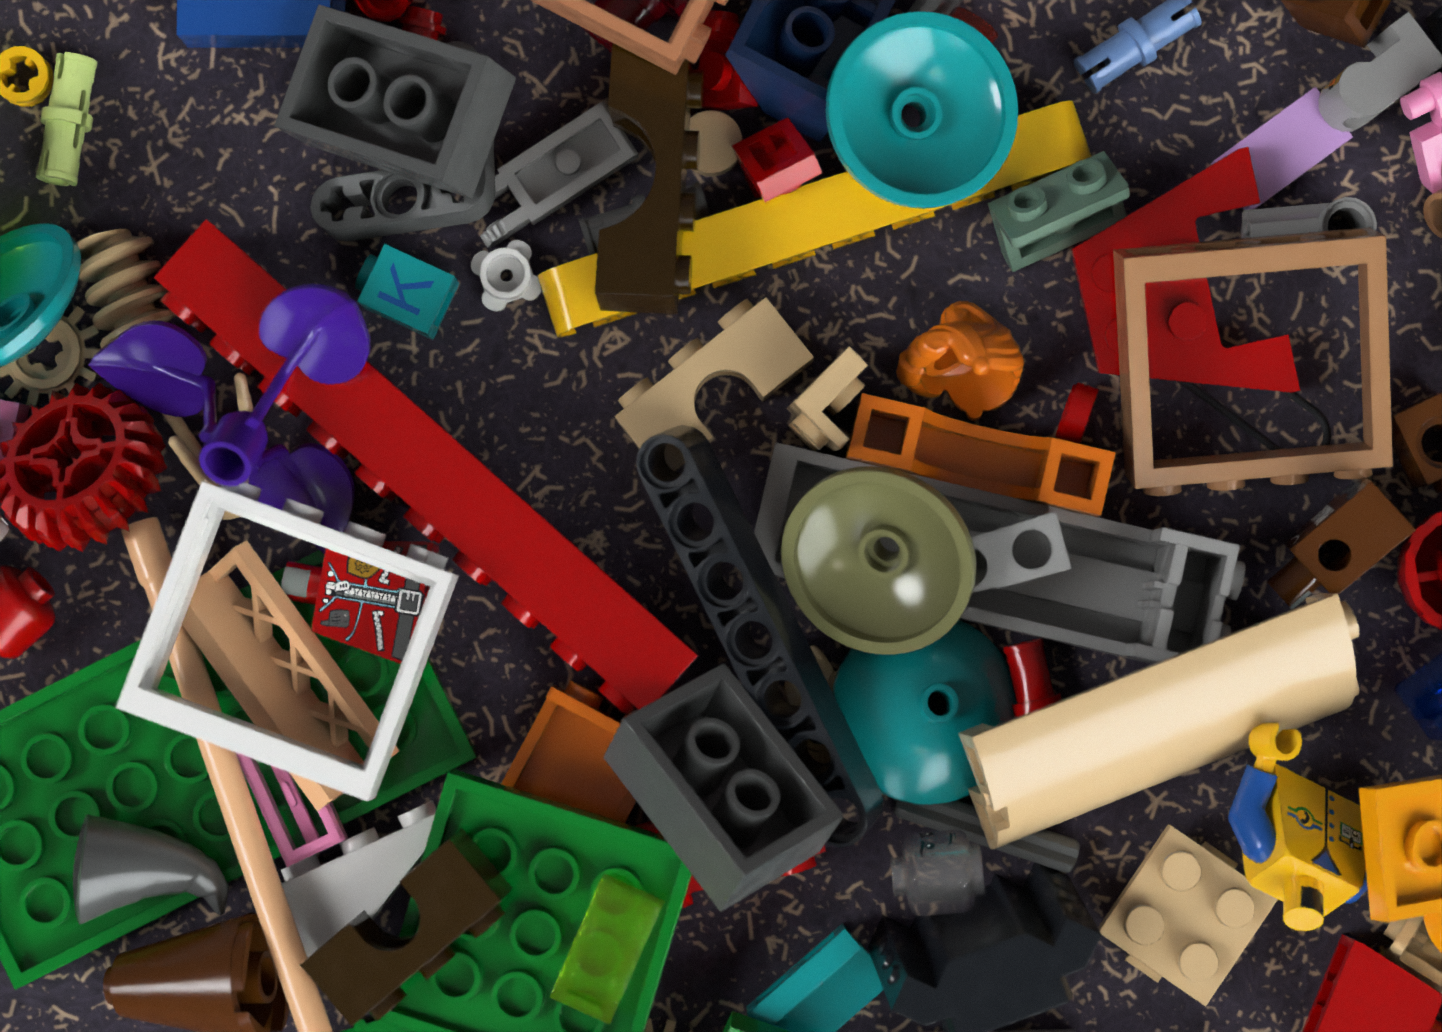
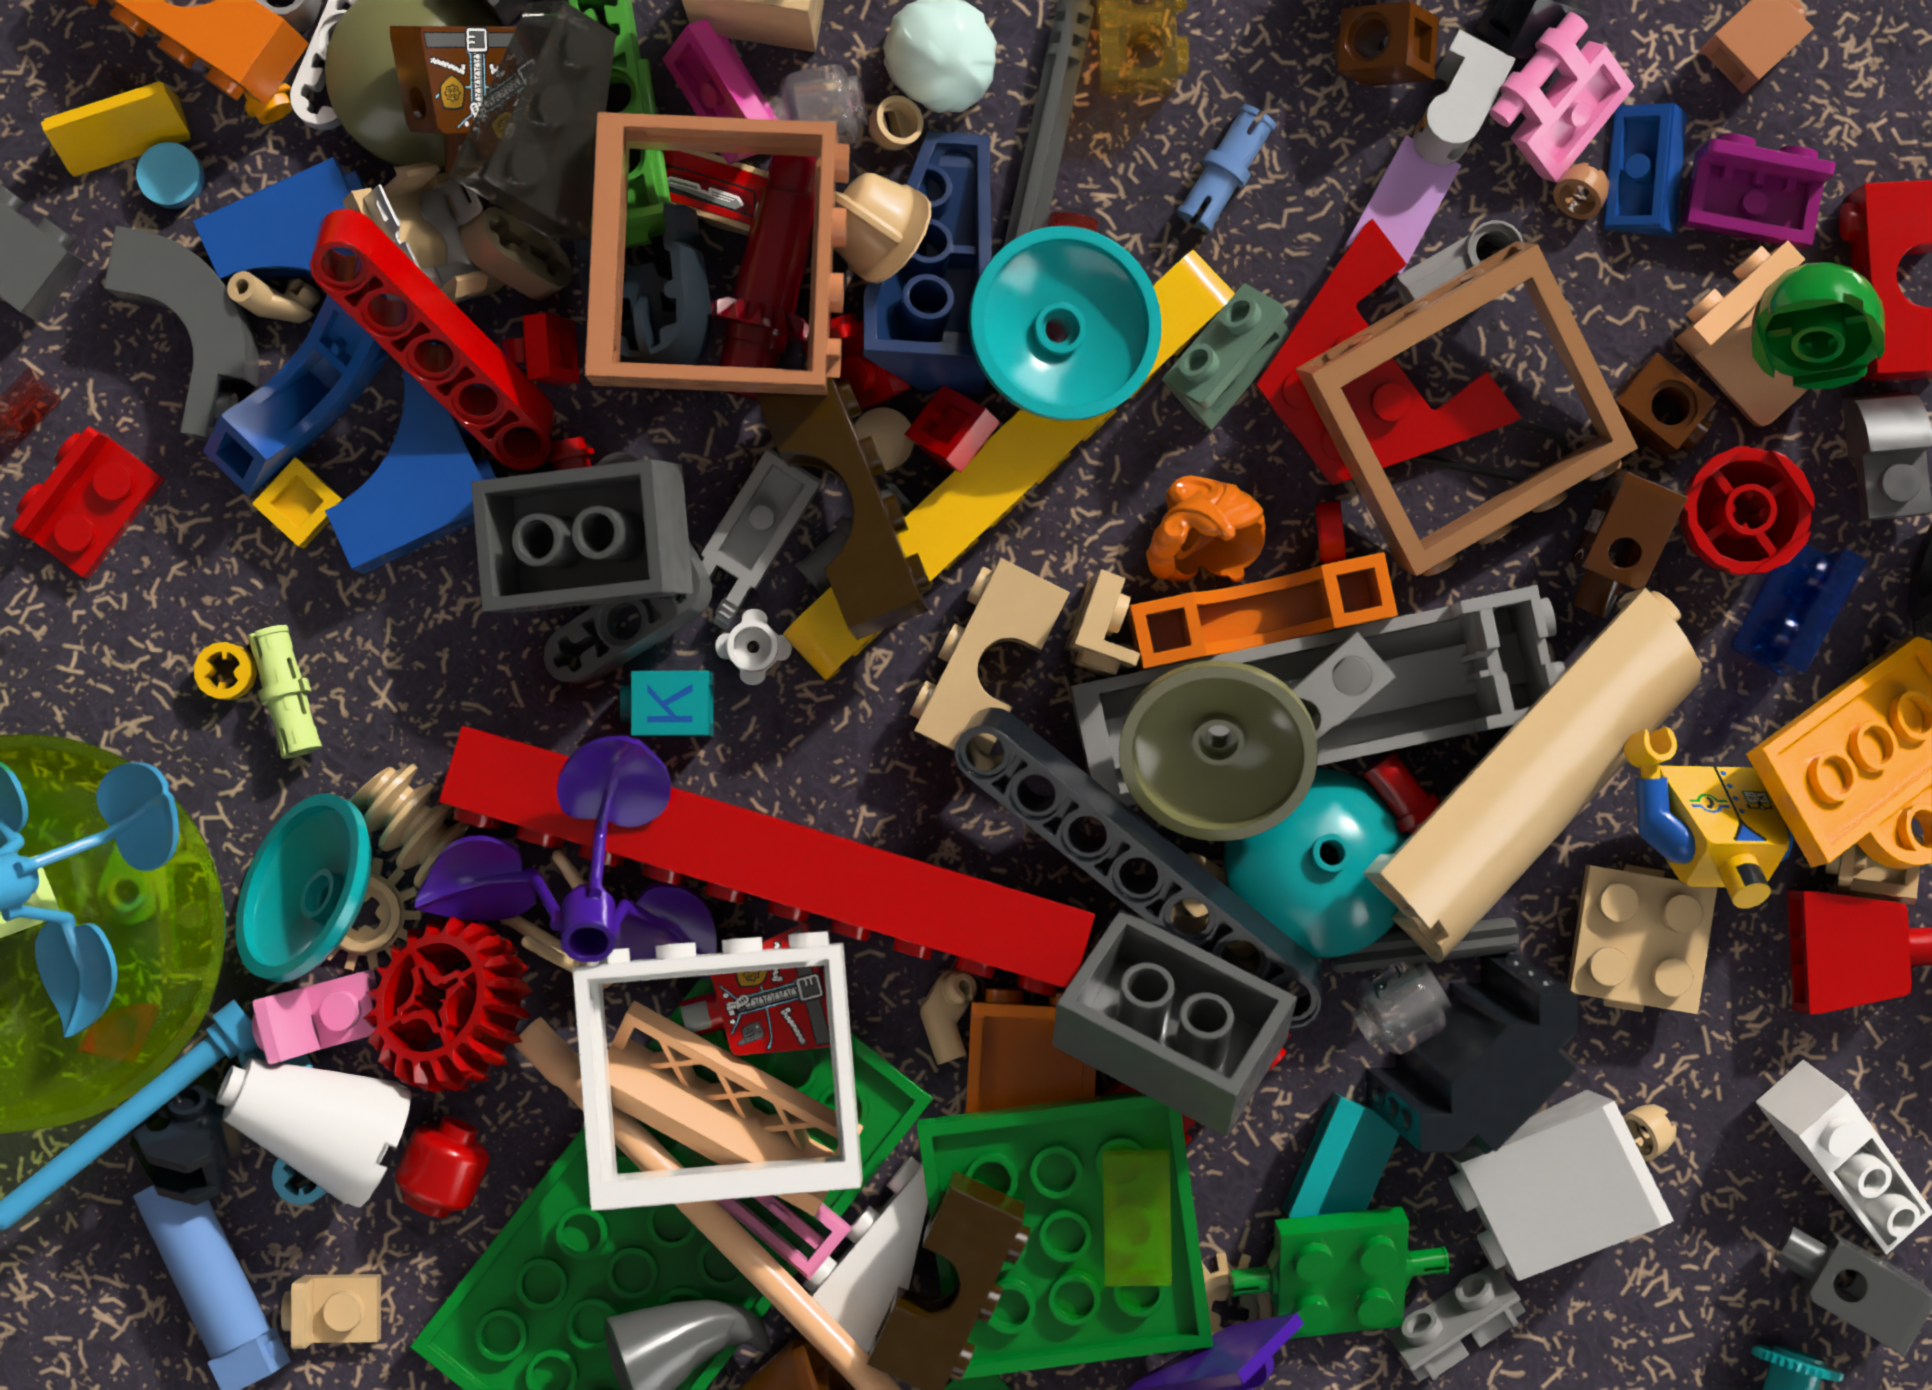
camera: 30 degrees left, 0 degrees up
(522, 684) = (943, 1010): none -> tan arm

